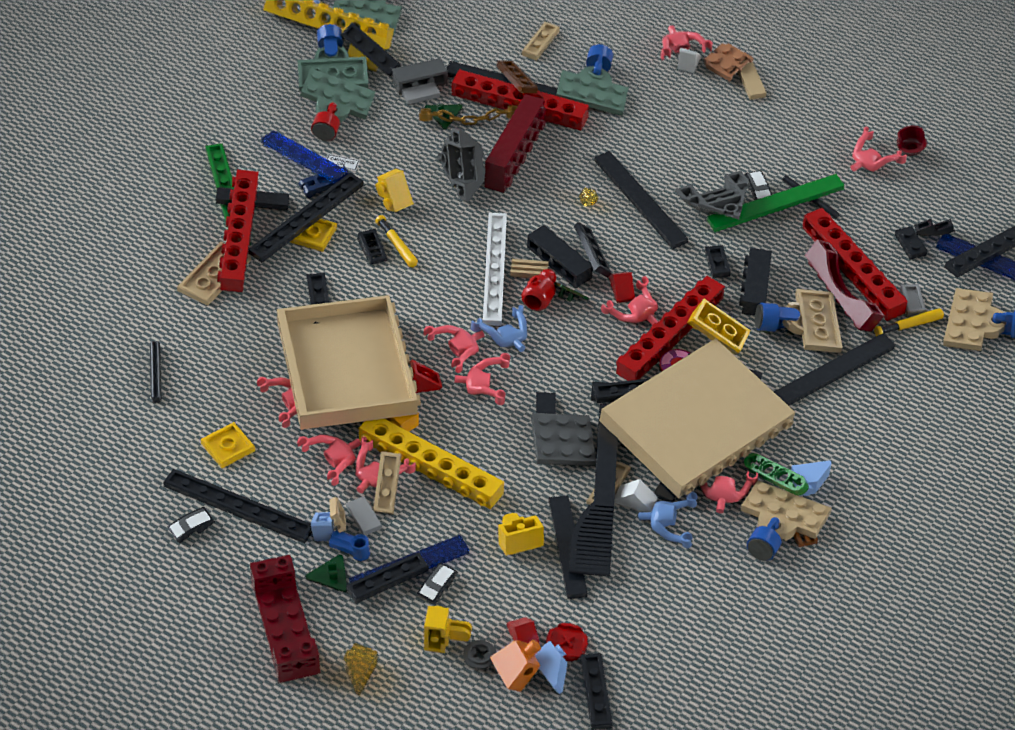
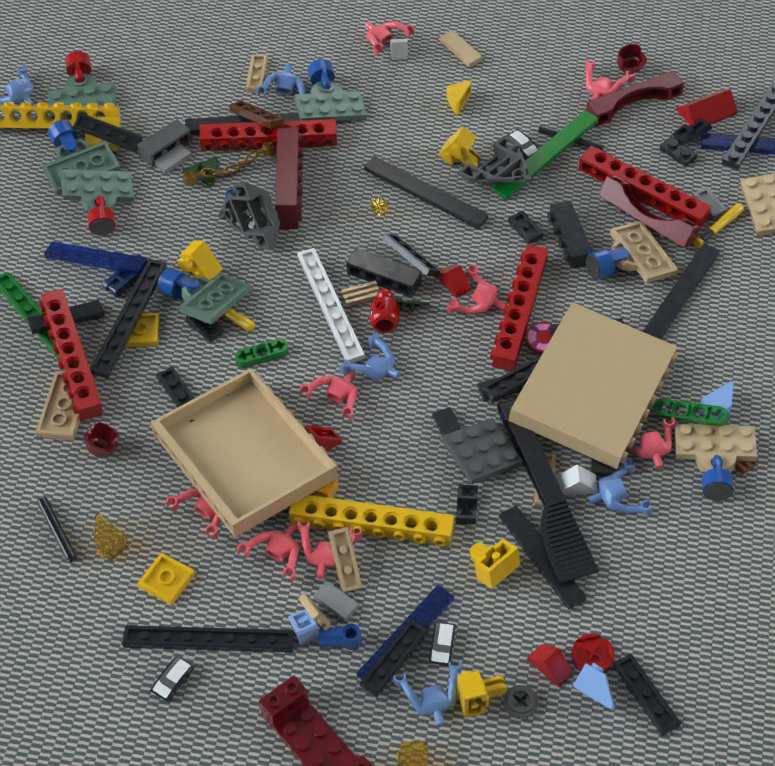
camera: 20 degrees left, 5 degrees up
(194, 394) = (108, 538): none -> clear yellow slope
(229, 311) = (101, 440): none -> dark red helmet
(330, 574) = (334, 675): dark green piece -> none
(349, 163) = (142, 249): white sticker -> none
(380, 221) = (203, 298): none -> sand green plate
(404, 622) = (433, 698): none -> medium blue piece
(416, 294) = (276, 353): none -> green beam
(479, 382) = (374, 422): coral piece -> none
(517, 663) = (565, 698): torso -> none
(525, 479) = (467, 504): none -> black slope
(560, 56) = (284, 82): none -> medium blue piece
(692, 170) = (459, 148): none -> yellow brick
(719, 325) = (566, 289): yellow slope -> none
(722, 121) = (458, 95): none -> yellow slope
(726, 60) = (431, 38): nougat plate -> none
(928, 177) = (661, 87): none -> dark red arch
(966, 214) = (710, 108): none -> red slope

